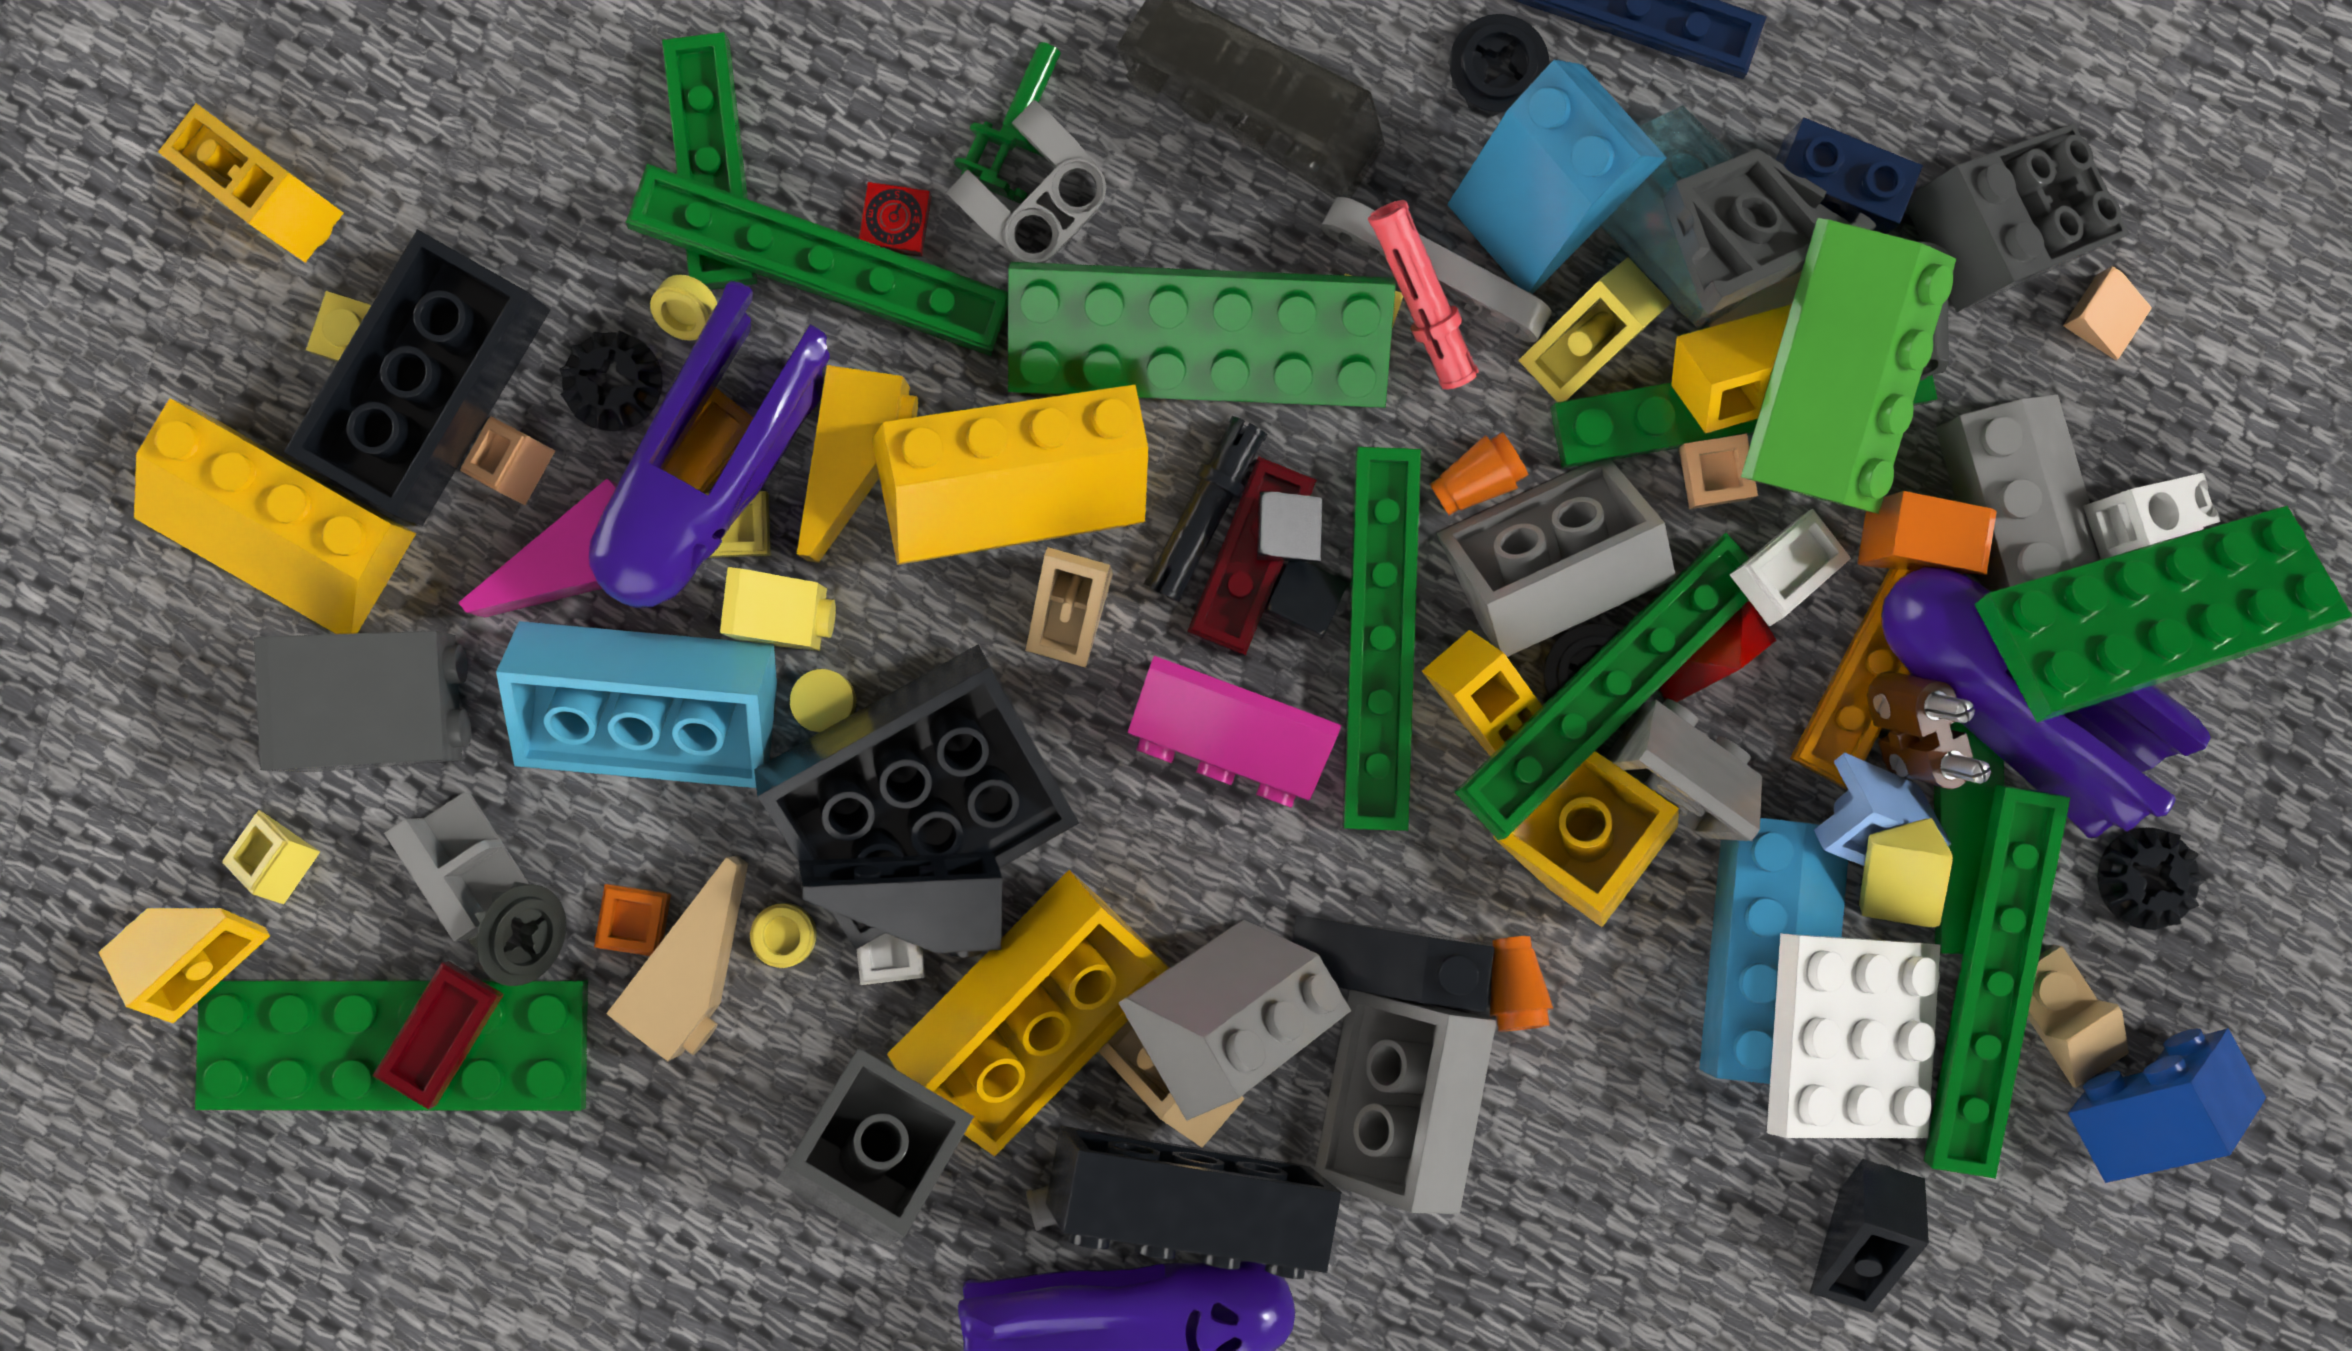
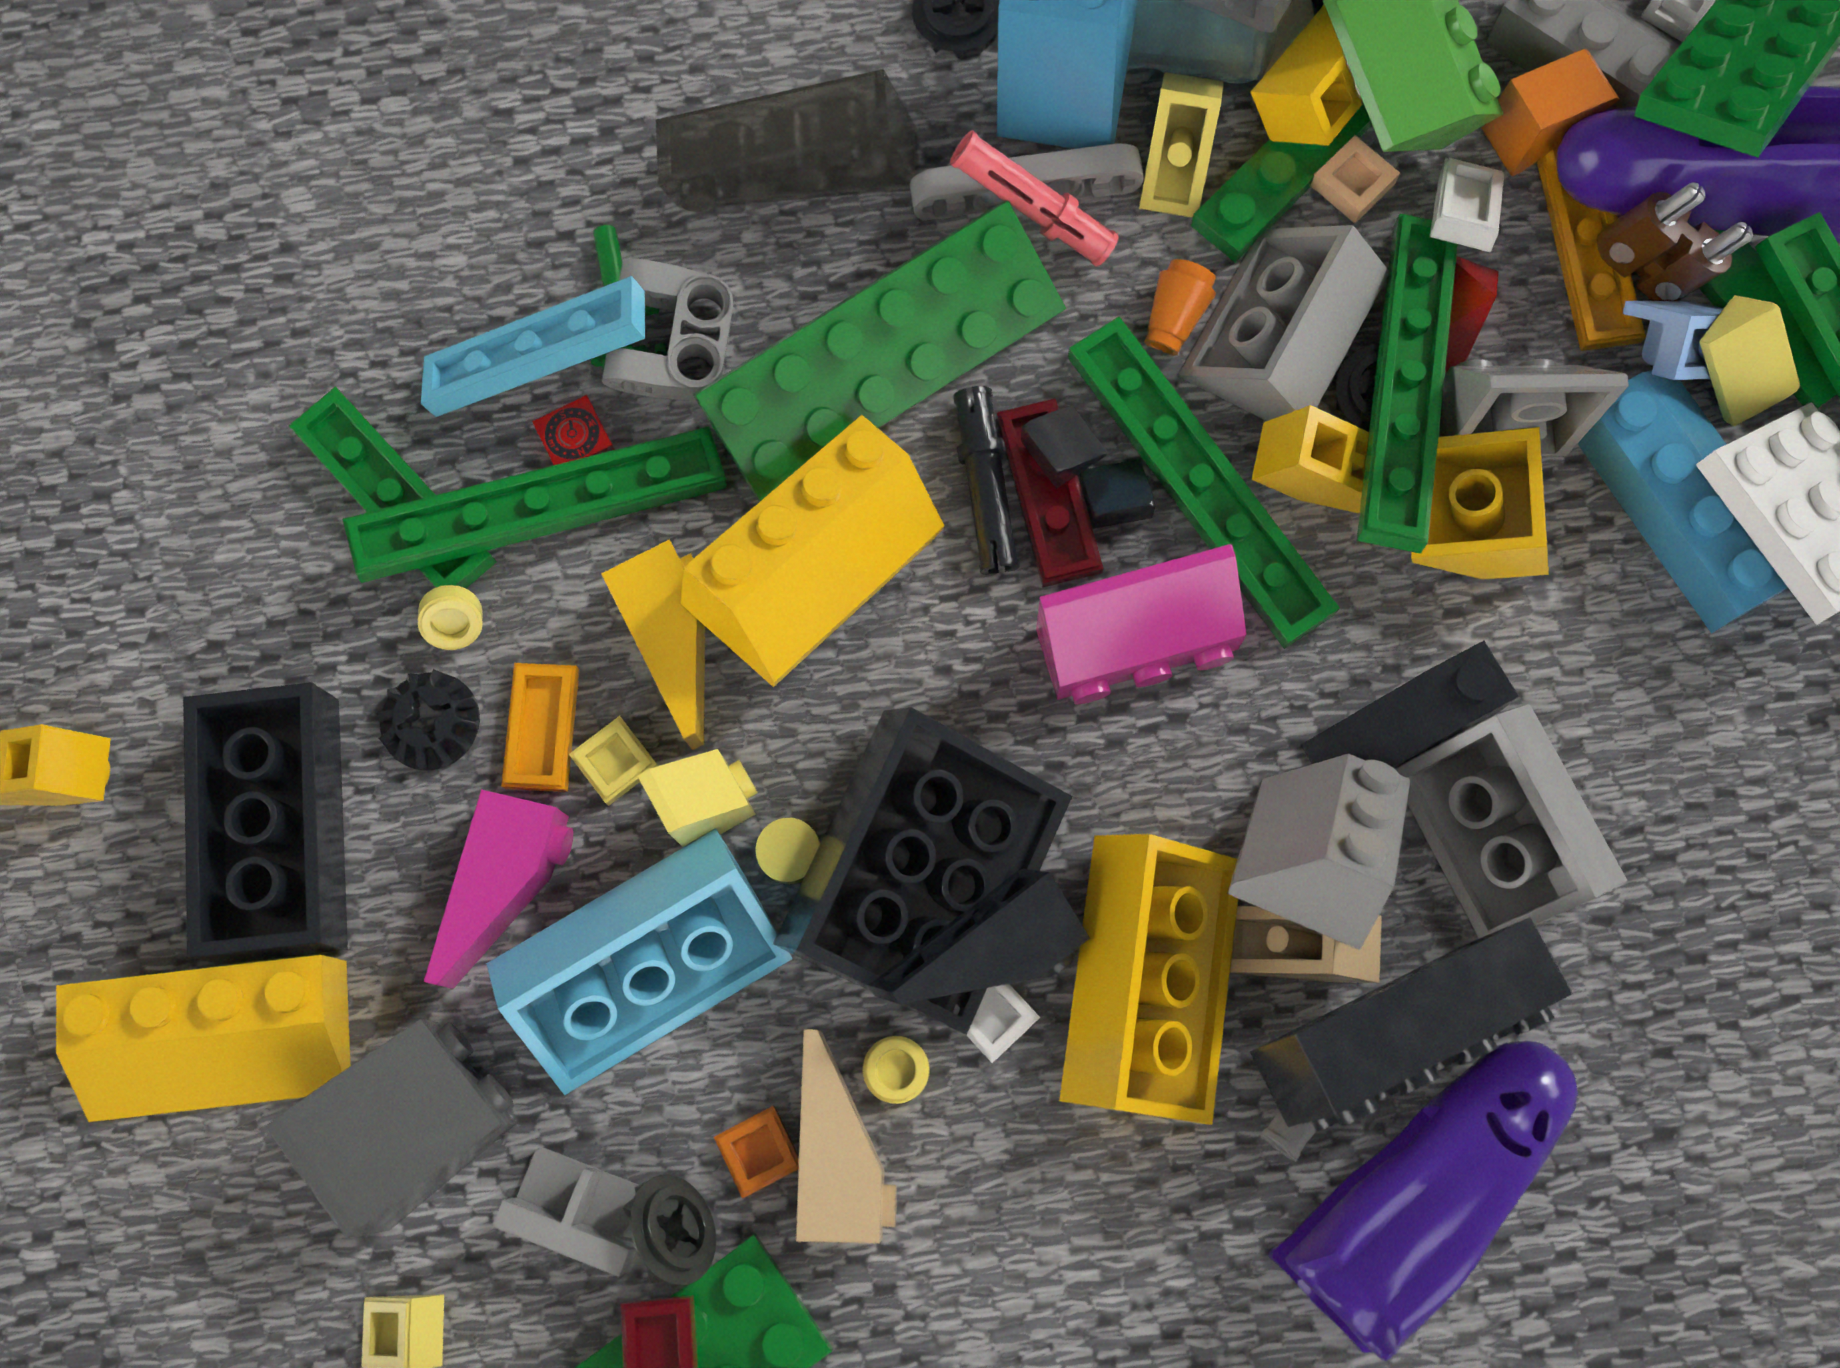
camera: 30 degrees left, 10 degrees down
(335, 325) = (164, 836): light yellow plate -> none
(507, 460) = (384, 844): light nougat slope -> none
(659, 525) = (553, 778): dark purple piece -> none
(875, 1149) = (1115, 1184): dark grey slope -> none
(908, 122) = (534, 346): none -> medium azure plate
(1068, 606) = (934, 626): tan slope -> none
(1517, 986) = (1531, 670): orange cone -> none

